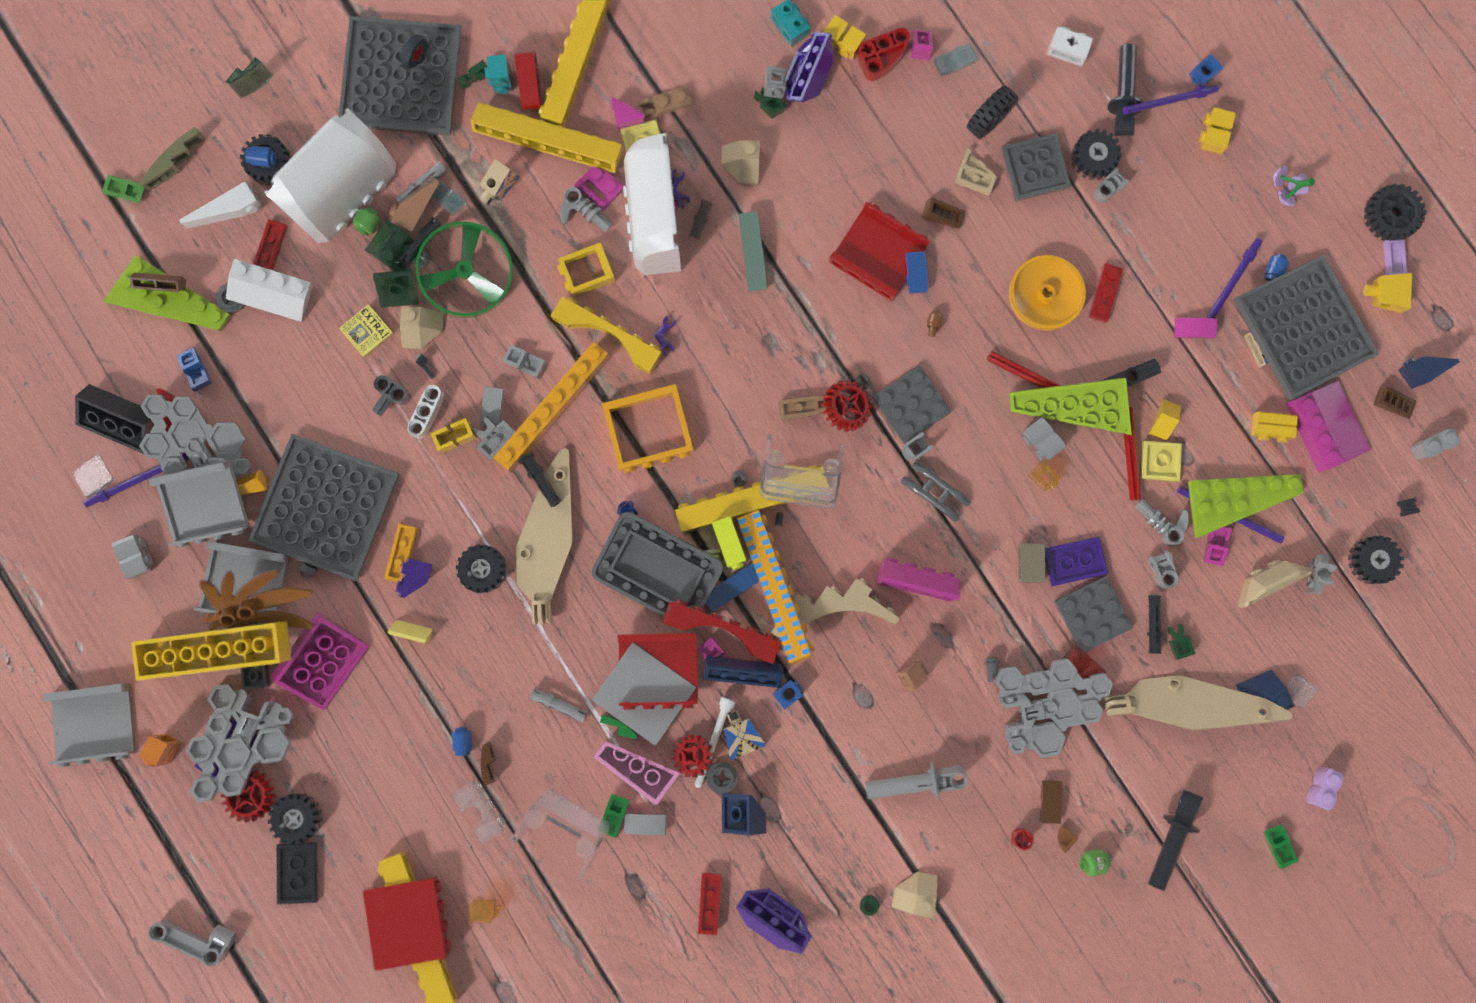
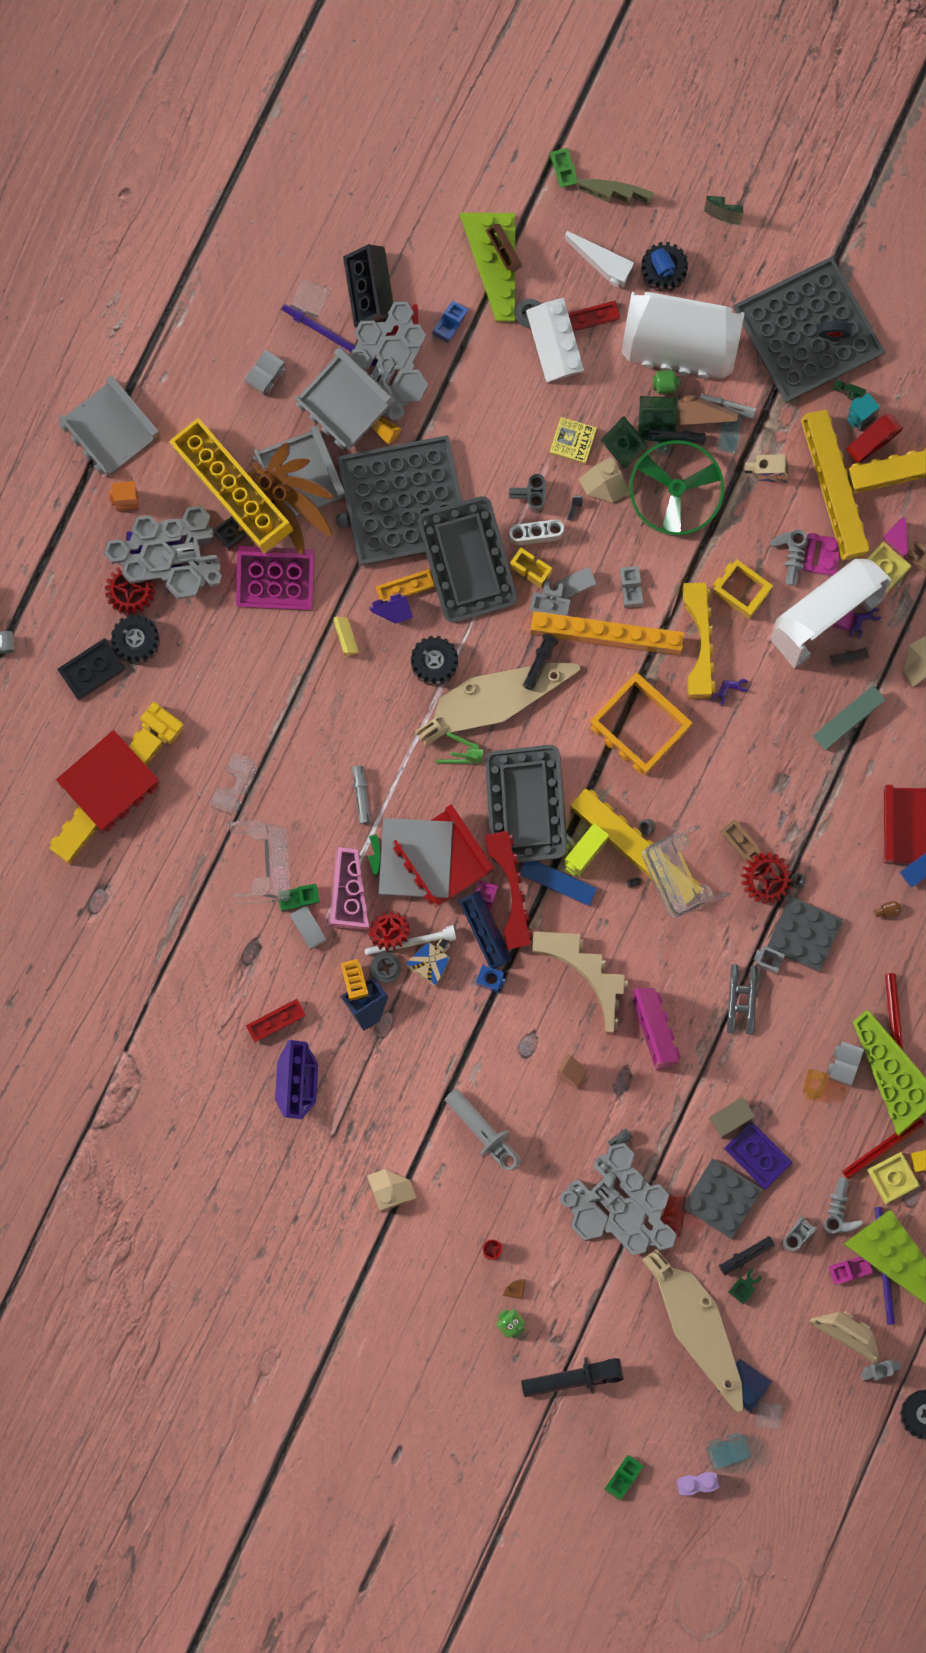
camera: 60 degrees right, 5 degrees down
(384, 841) = (161, 723): none -> yellow brick
(410, 485) = (467, 559): none -> dark grey wedge
(462, 741) = (282, 734): blue brick -> none
(483, 911) = (155, 839): clear yellow window -> none
(487, 757) = (280, 763): reddish brown slope -> none
(585, 588) = (472, 755): none -> bright green plant
(626, 506) = (563, 748): clear blue plate -> none
(705, 810) = (353, 968): none -> light orange slope
(775, 588) = (573, 911): light orange brick -> none
(869, 905) = (356, 1155): dark green plate -> none
(1051, 802) = (539, 1256): reddish brown slope -> none
(1311, 744) = (728, 1451): none -> clear light blue brick

